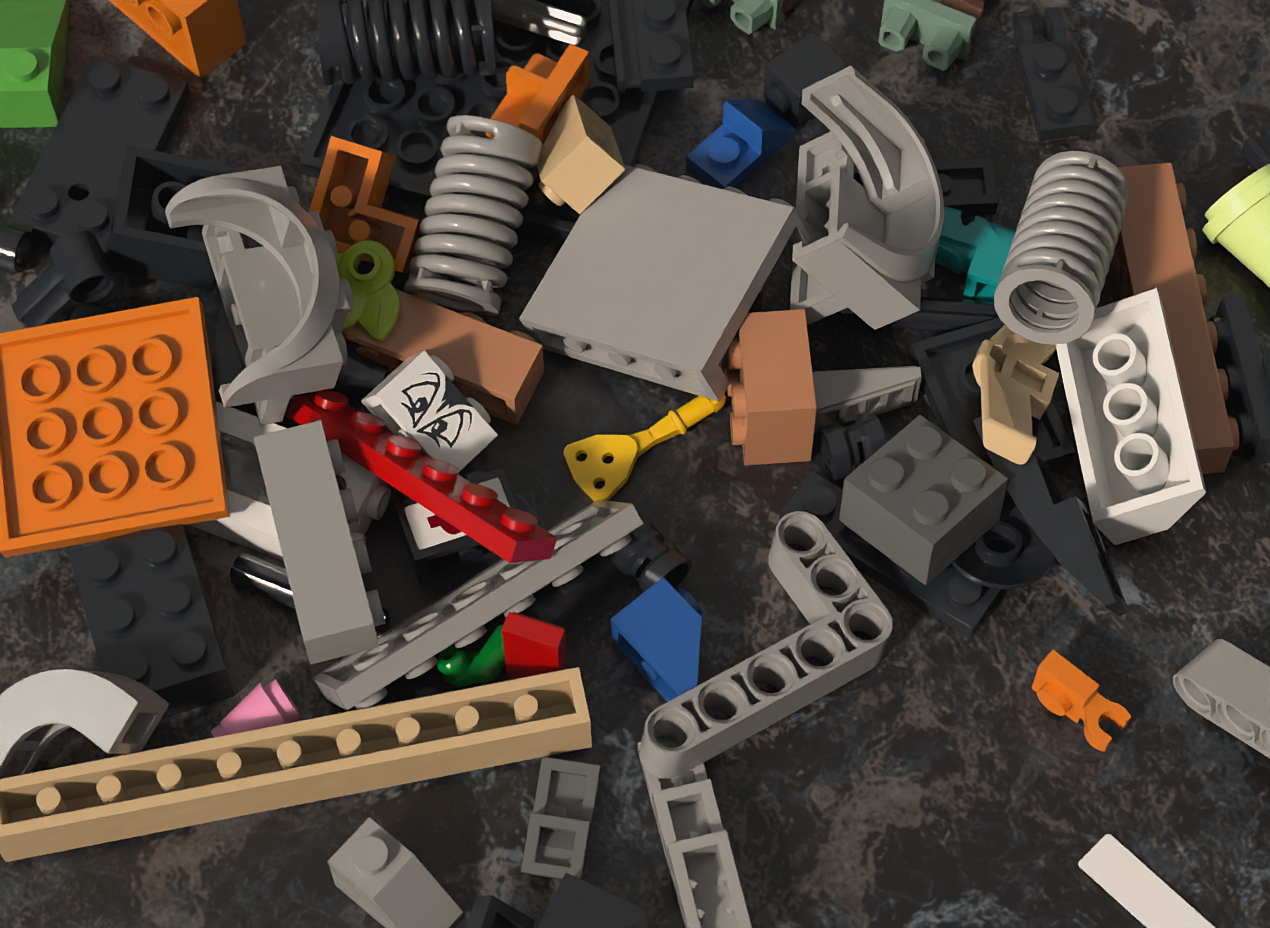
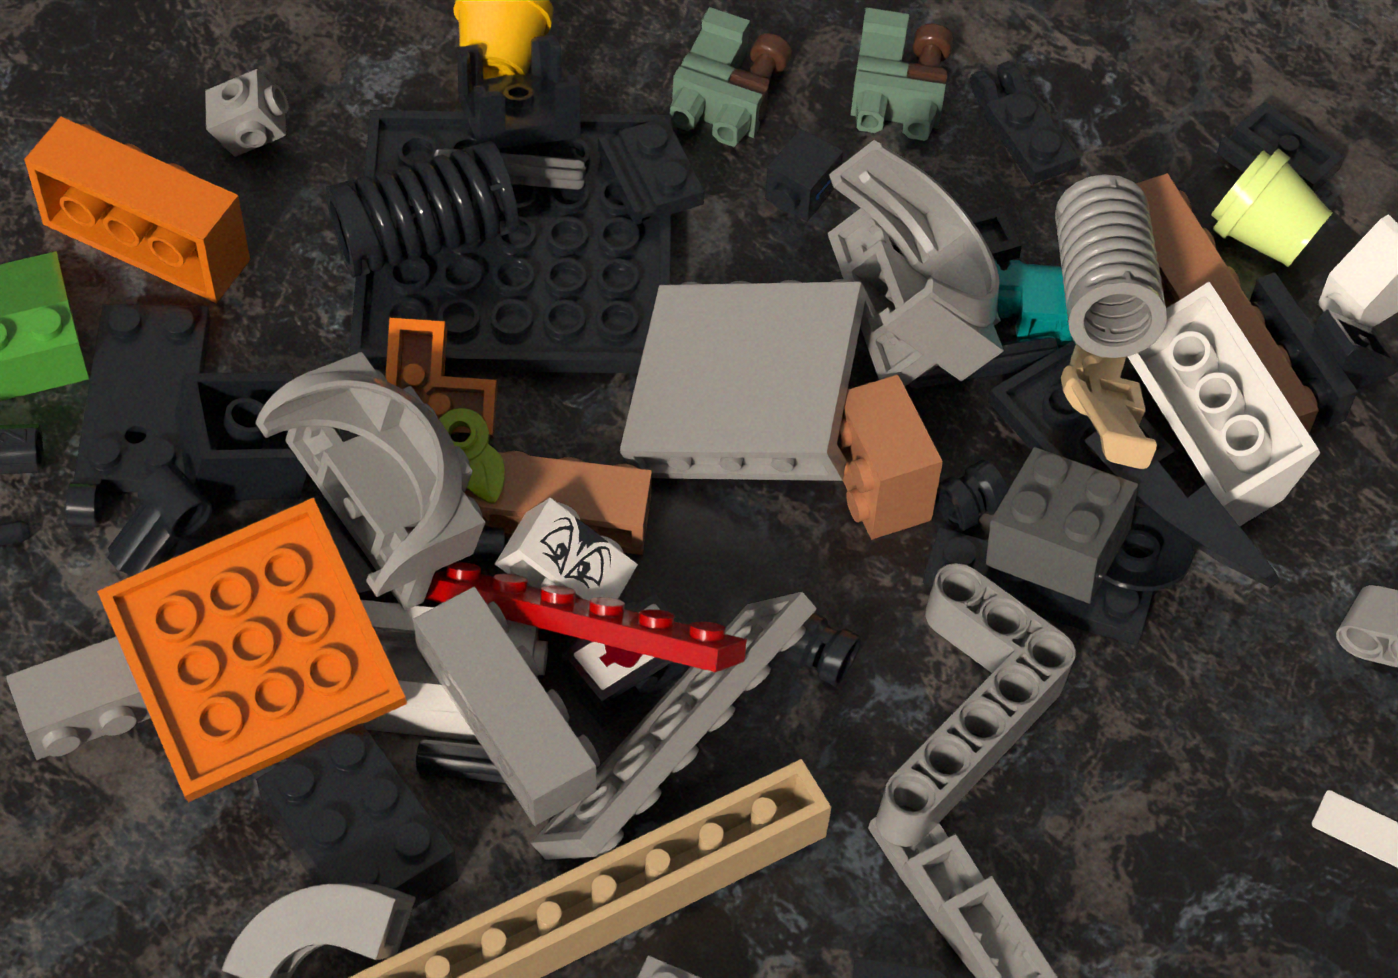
camera: 20 degrees left, 5 degrees down
(260, 709) = (493, 885): bright pink cone -> none
(474, 667) = (695, 786): green arm -> none
(482, 216) = (545, 362): light grey piece -> none
(532, 646) = (748, 753): red tile -> none
(541, 91) = (564, 247): orange panel -> none
(561, 818) = (822, 911): dark grey slope -> none
(578, 157) = (626, 289): tan slope -> none
(628, 448) = (759, 549): yellow piece -> none
(661, 638) = (862, 719): blue slope -> none
(740, 145) = (763, 245): blue slope -> none
(859, 392) = (972, 440): light grey slope -> none
(1074, 694) = (1255, 668): orange plate -> none

